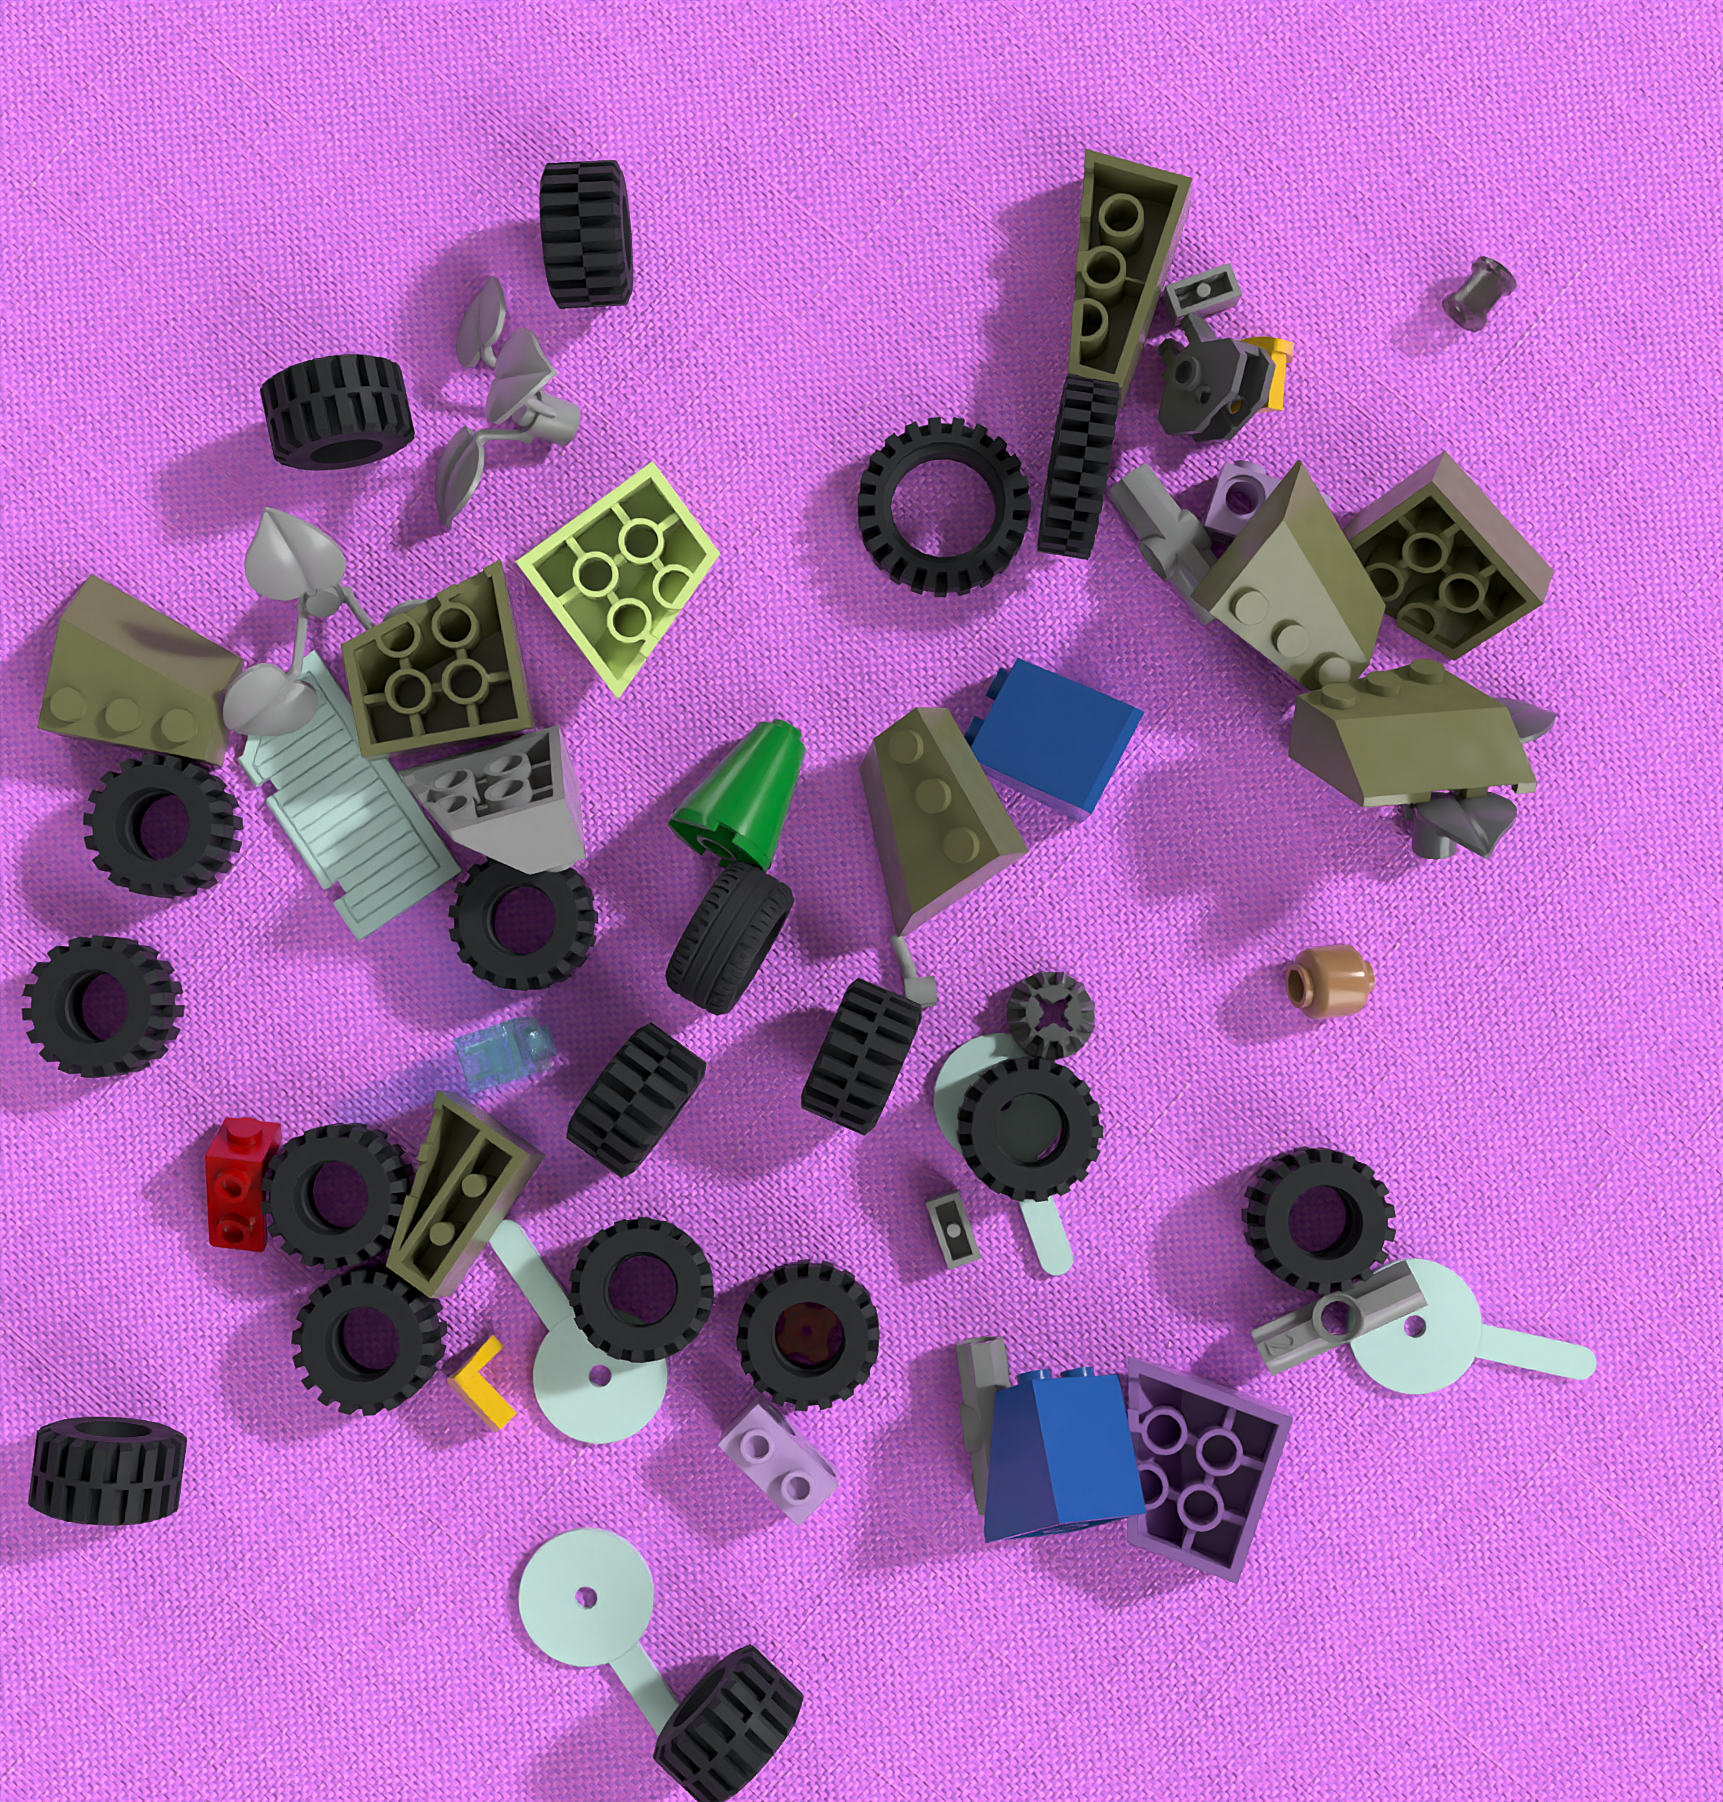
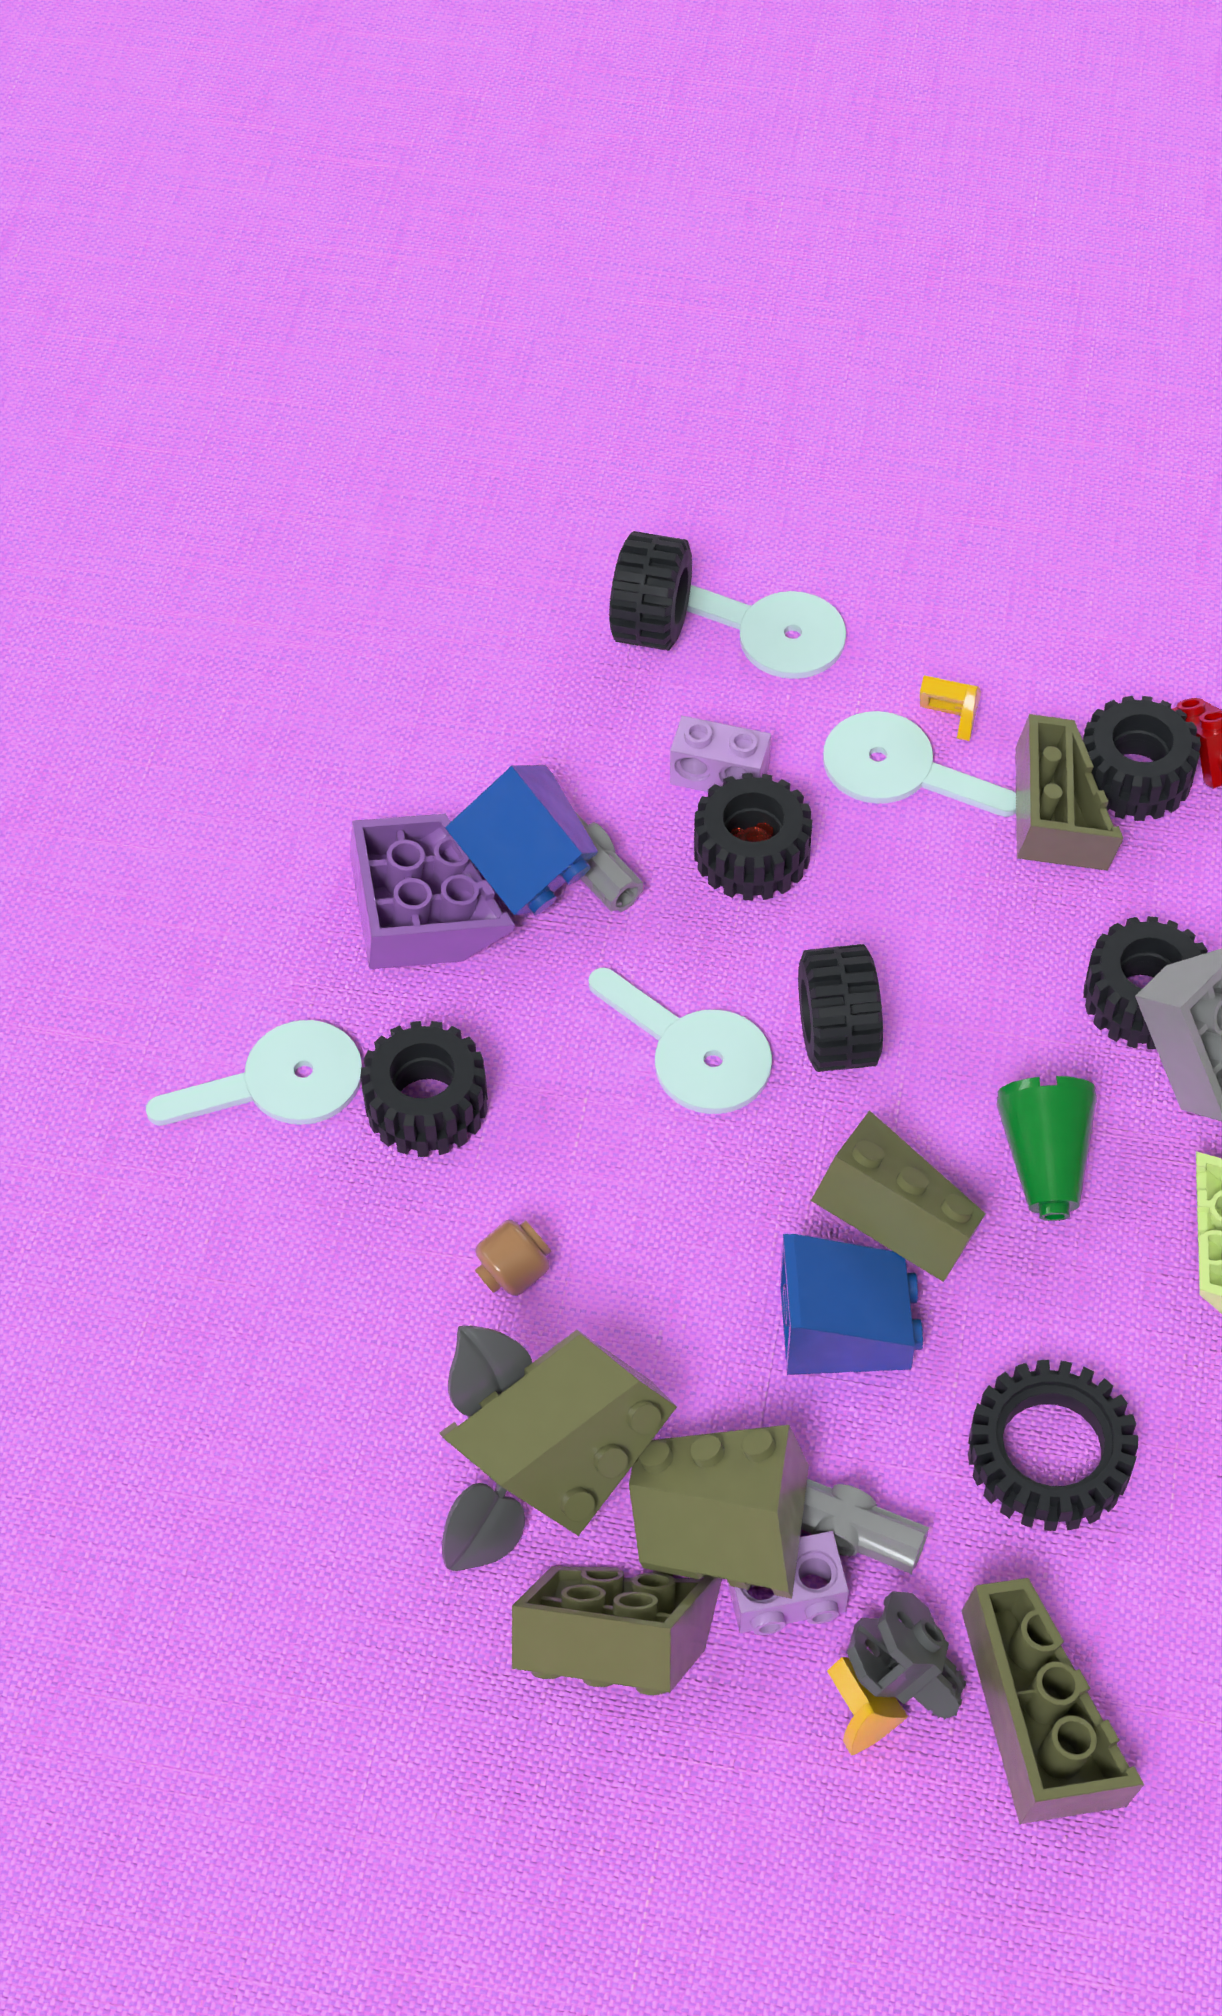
camera: 150 degrees right, 30 degrees down
(107, 1471) = (1159, 531): black tyre -> none
(334, 1368) = (1050, 662): black tyre -> none
(505, 1053) = (1094, 886): clear light blue brick -> none
(591, 1290) = (895, 771): black tyre -> none
(635, 1100) = (980, 900): black tyre -> none
(729, 937) = (991, 1030): black tyre -> none
(918, 989) = (826, 1095): light grey hand -> none
(953, 1229) = (692, 957): light grey piece -> none
(1051, 1041) = (728, 1146): dark grey gear -> none
(1077, 1139) = (679, 1000): black tyre -> none
(1078, 467) = (969, 1499): black tyre -> none
(1201, 294) = (958, 1746): piece -> none
(1302, 1335) = (343, 1058): light grey piece -> none
(1479, 294) = (715, 1885): clear smoke bush -> none

